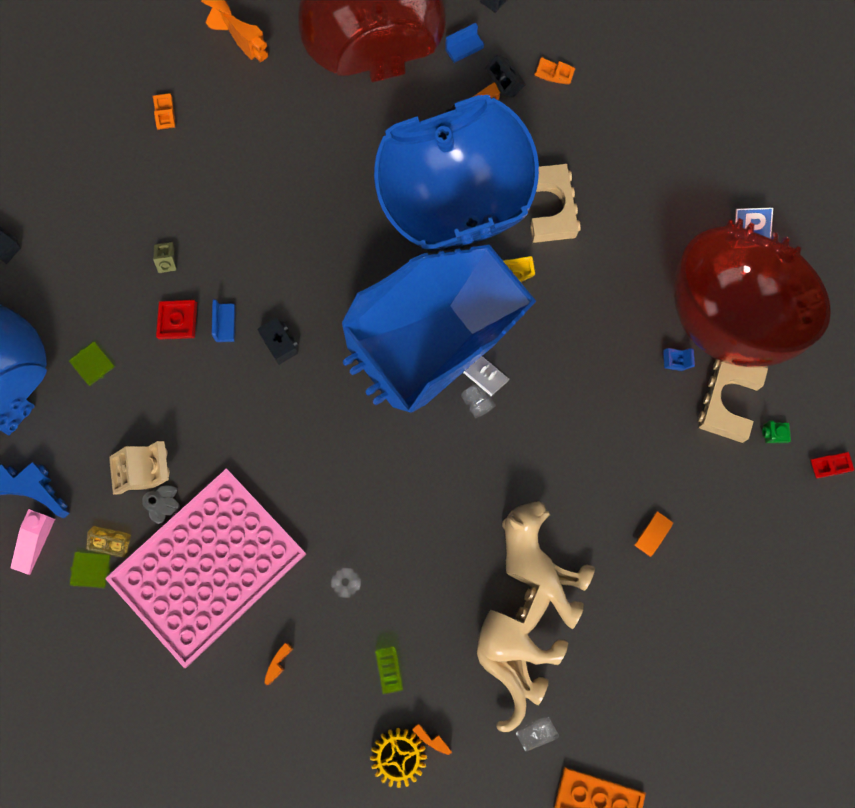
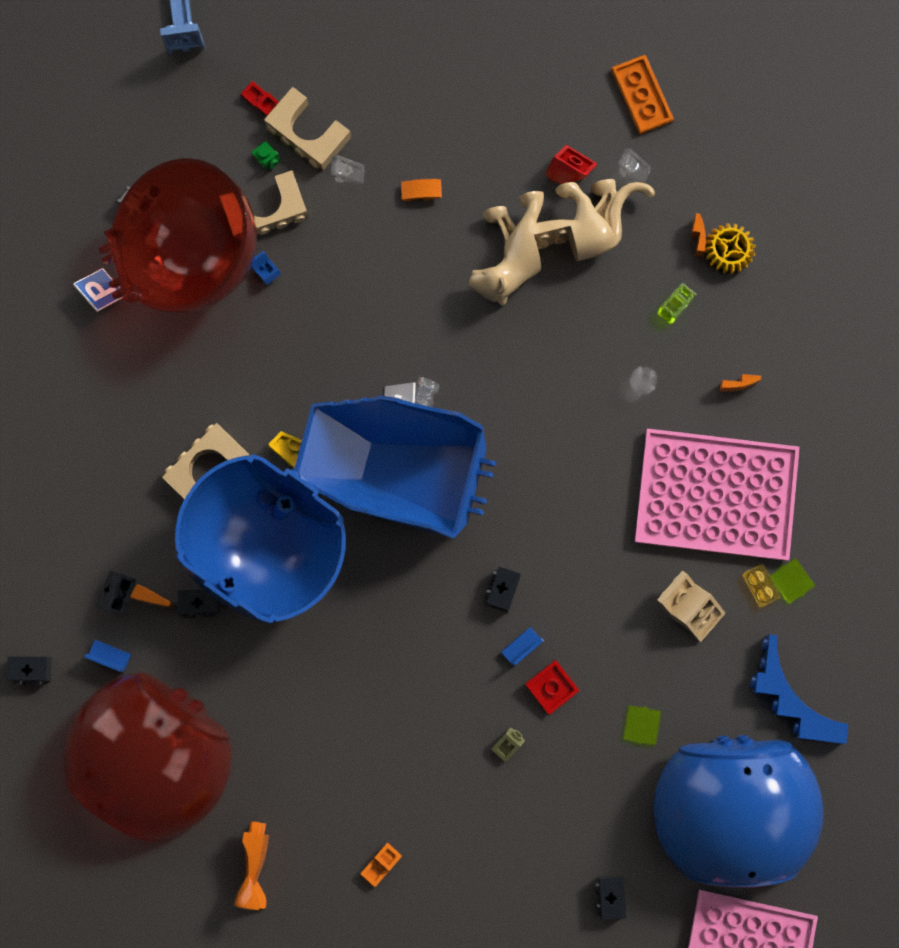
camera: 125 degrees left, 5 degrees up
(31, 541) = (810, 642): bright pink slope -> none
(164, 503) = (701, 566): dark grey plate -> none
(554, 72) = (74, 559): orange slope -> none
(580, 677) = (569, 166): none -> red slope
(716, 485) = (347, 170): none -> clear slope
(798, 465) = (318, 151): none -> tan arch

